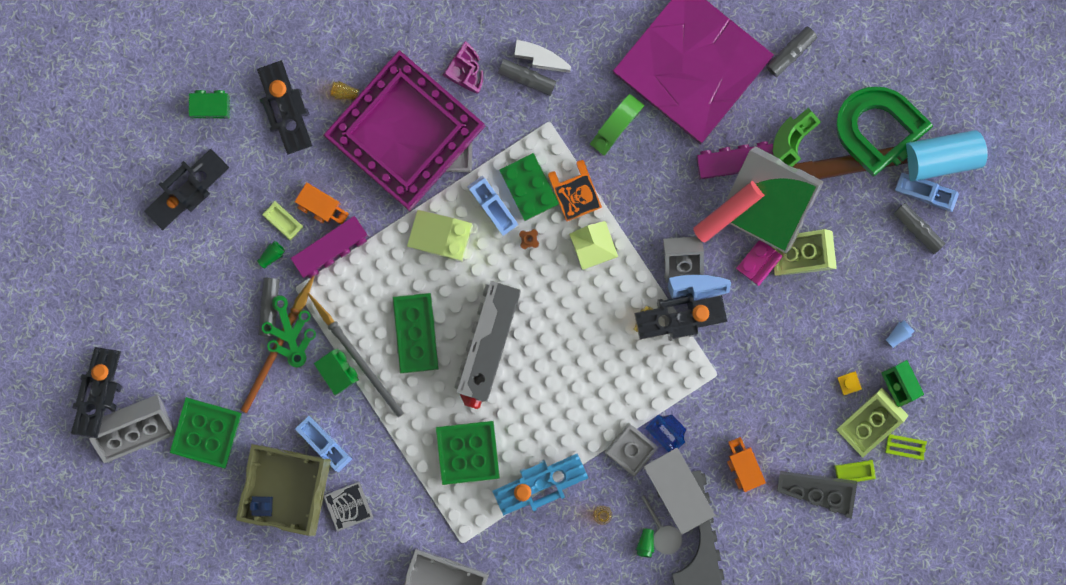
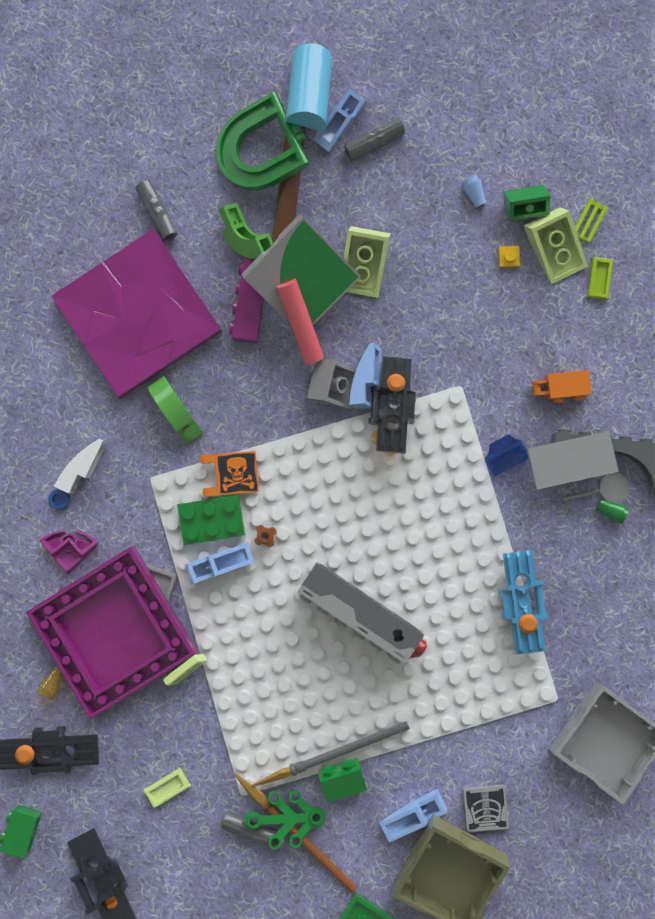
camera: 75 degrees left, 0 degrees up
(261, 506) = (459, 902): dark blue tile -> none
(271, 254) = (198, 811): green cone -> none
(320, 204) = (162, 744): orange brick -> none
(330, 247) = (210, 748): magenta brick -> none
(390, 204) = (185, 669): none -> yellowish green tile
(415, 333) = (327, 684): green tile -> none
(440, 235) = (233, 627): yellowish green slope -> none
(467, 452) = (468, 667): green plate -> none
(505, 46) = (59, 499): none -> blue tile
(527, 77) = (96, 487): dark grey axle -> none
(593, 245) = (291, 471): yellowish green slope -> none
(598, 511) = (566, 546): clear yellow cone -> none
(631, 449) = (512, 496): light grey tile -> none
(759, 262) = (360, 308): dark pink plate -> none
(828, 492) = (615, 308): dark grey wing -> none

